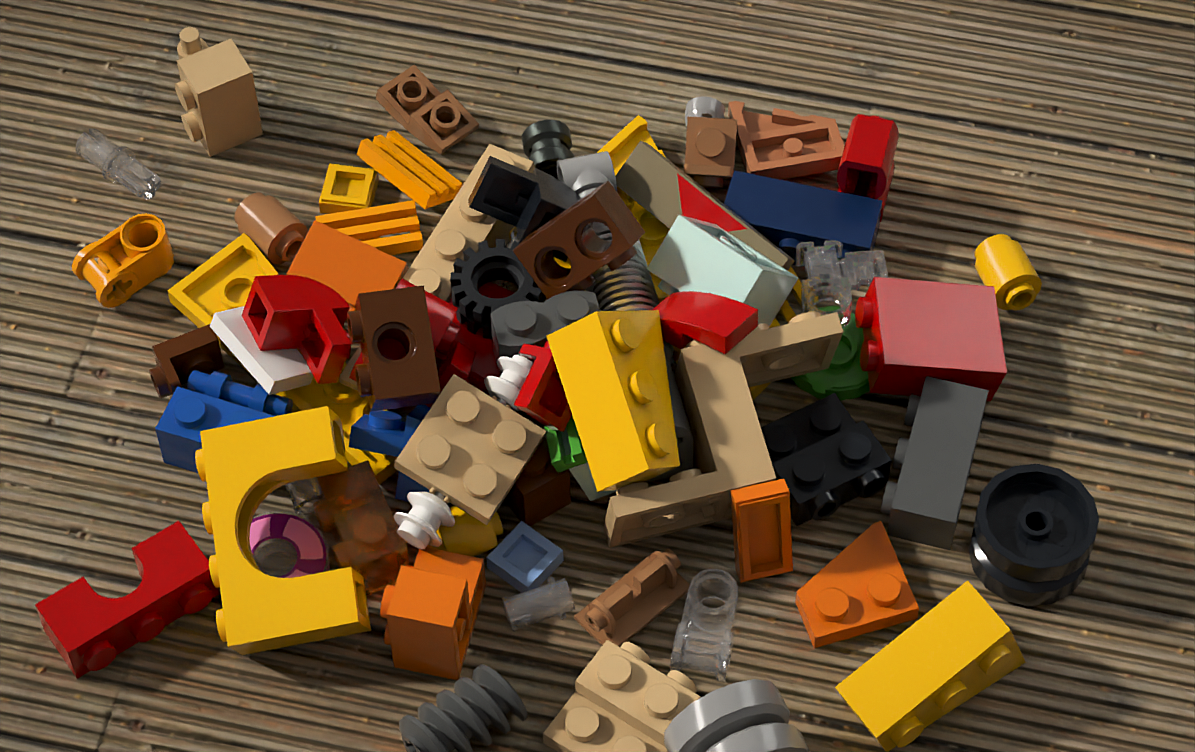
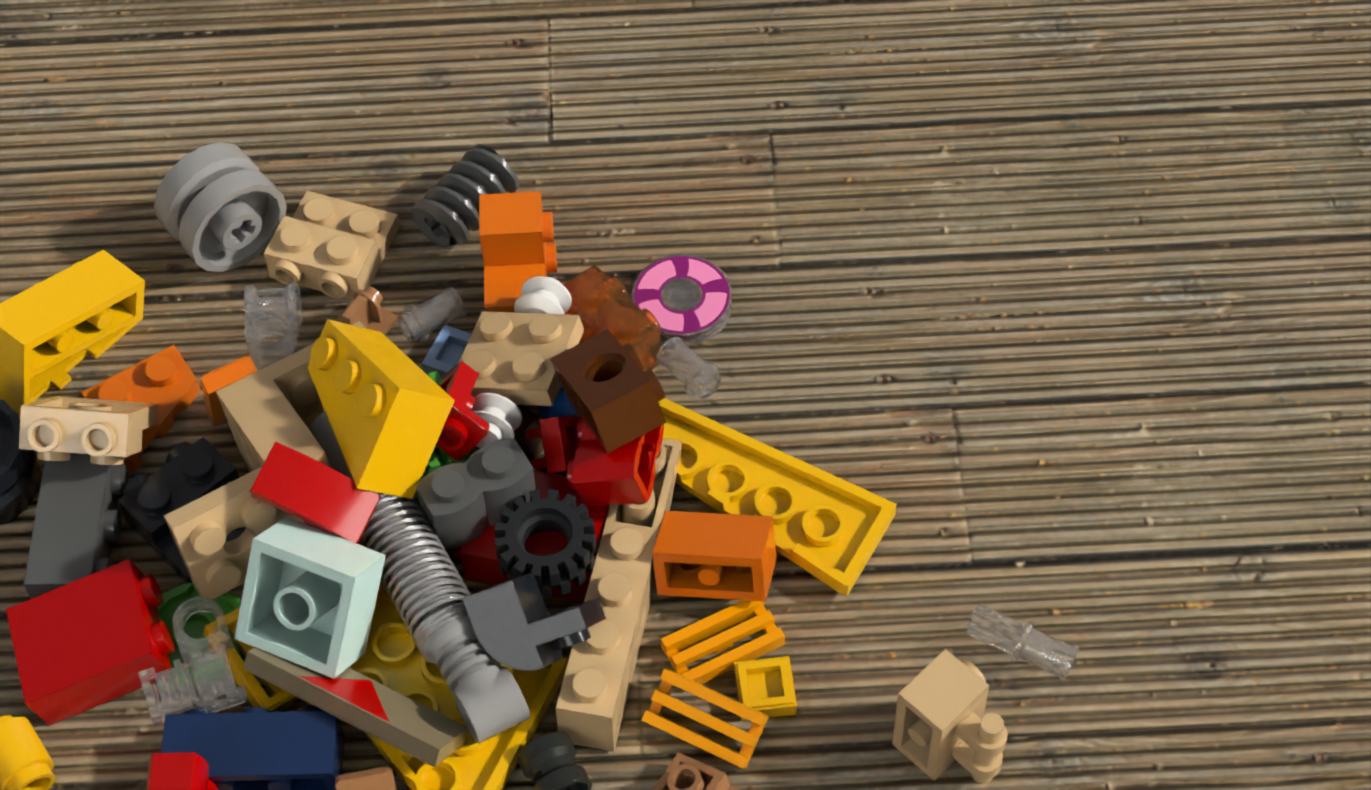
camera: 165 degrees right, 0 degrees up
(97, 628) = (813, 197): red arch -> none
(125, 259) = (960, 526): light orange piece -> none
(182, 355) = (847, 439): reddish brown bracket -> none
(210, 404) = (775, 379): blue brick -> none
(241, 470) = (669, 228): yellow arch -> none
(270, 227) = (823, 605): medium nougat brick -> none
(272, 369) = (766, 446): white tile -> none
(300, 315) = (741, 468): red brick -> none
(574, 235) = (458, 544): reddish brown brick -> none
(910, 512) = (85, 426): none -> tan plate

